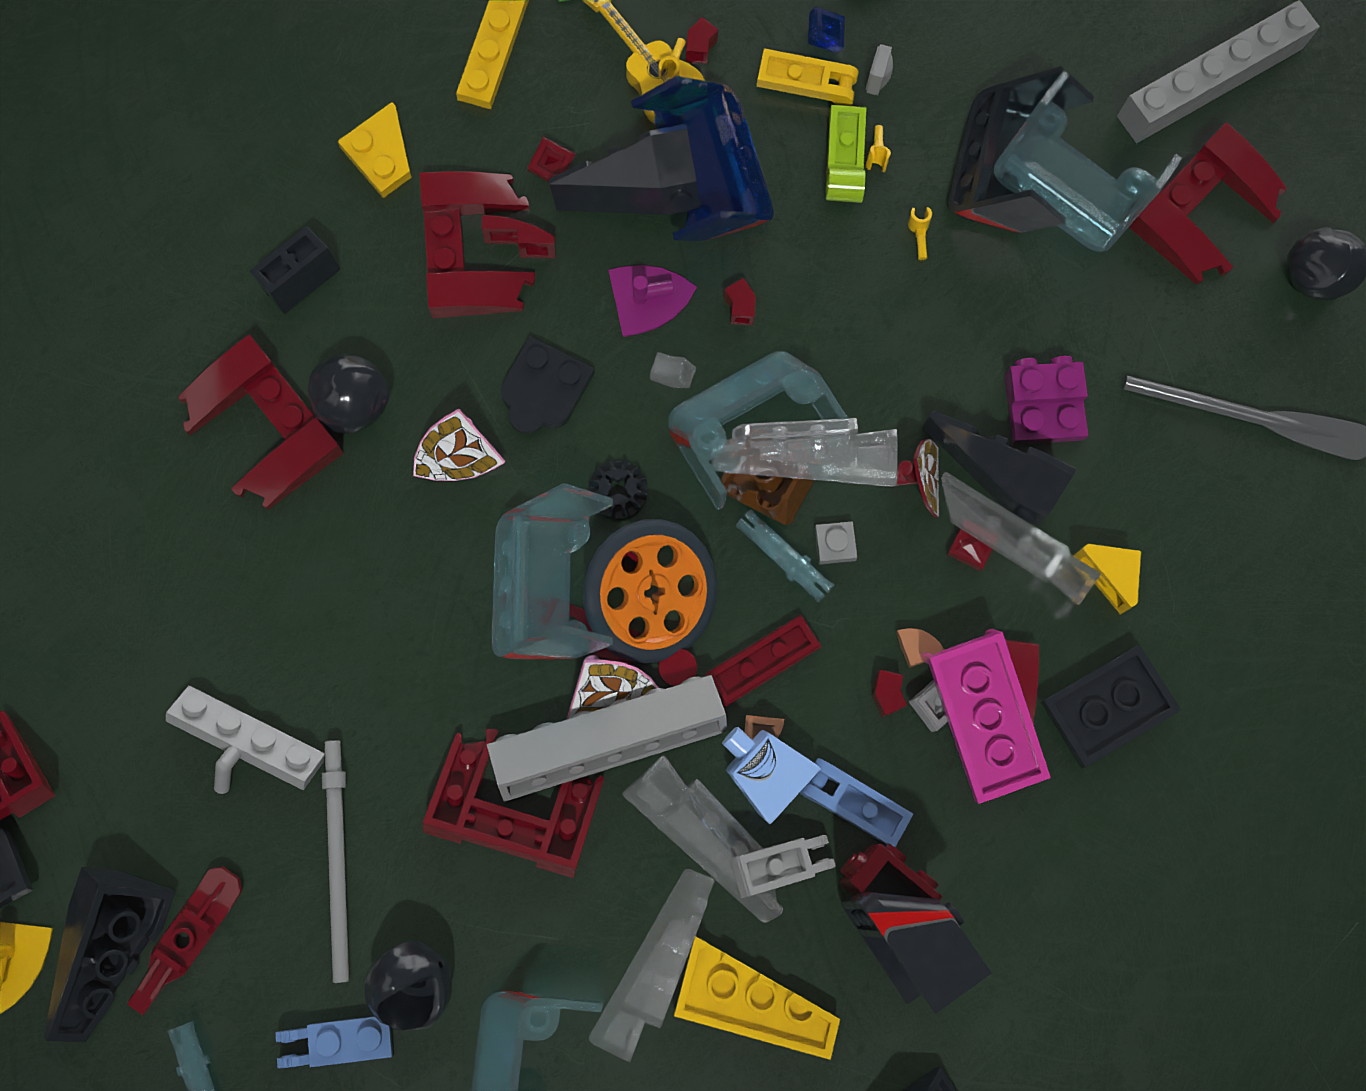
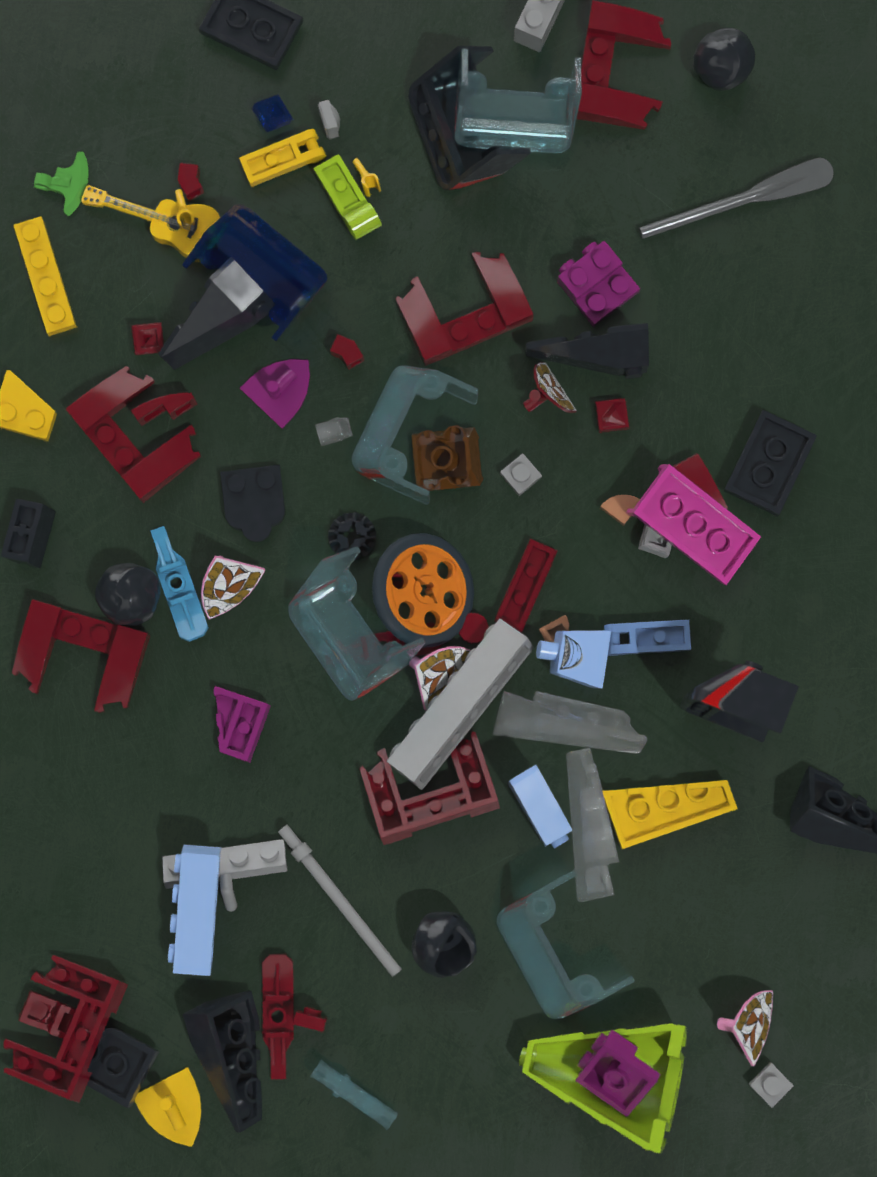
camera: 25 degrees left, 5 degrees up
(175, 764) = (195, 910): none -> light blue brick
(212, 968) = (311, 1019): none -> dark red plate
(339, 1042) = (423, 1009): medium blue hinge -> none
(365, 601) = (239, 723): none -> magenta wing
(401, 439) = (181, 601): none -> dark azure piece
(616, 908) = (540, 807): none -> light blue slope
(778, 866) = (625, 711): light grey hinge -> none
(795, 565) = (493, 506): clear light blue pin -> none
(812, 451) = (466, 426): clear wedge -> none
(864, 866) = (680, 674): dark red bracket -> none
(887, 692) = (620, 551): dark red piece -> none
(919, 227) = (432, 216): yellow hand -> none
(931, 370) = (439, 341): none -> dark red wedge
(1017, 540) = (639, 393): clear wedge -> none
(1118, 573) = (715, 372): yellow slope -> none

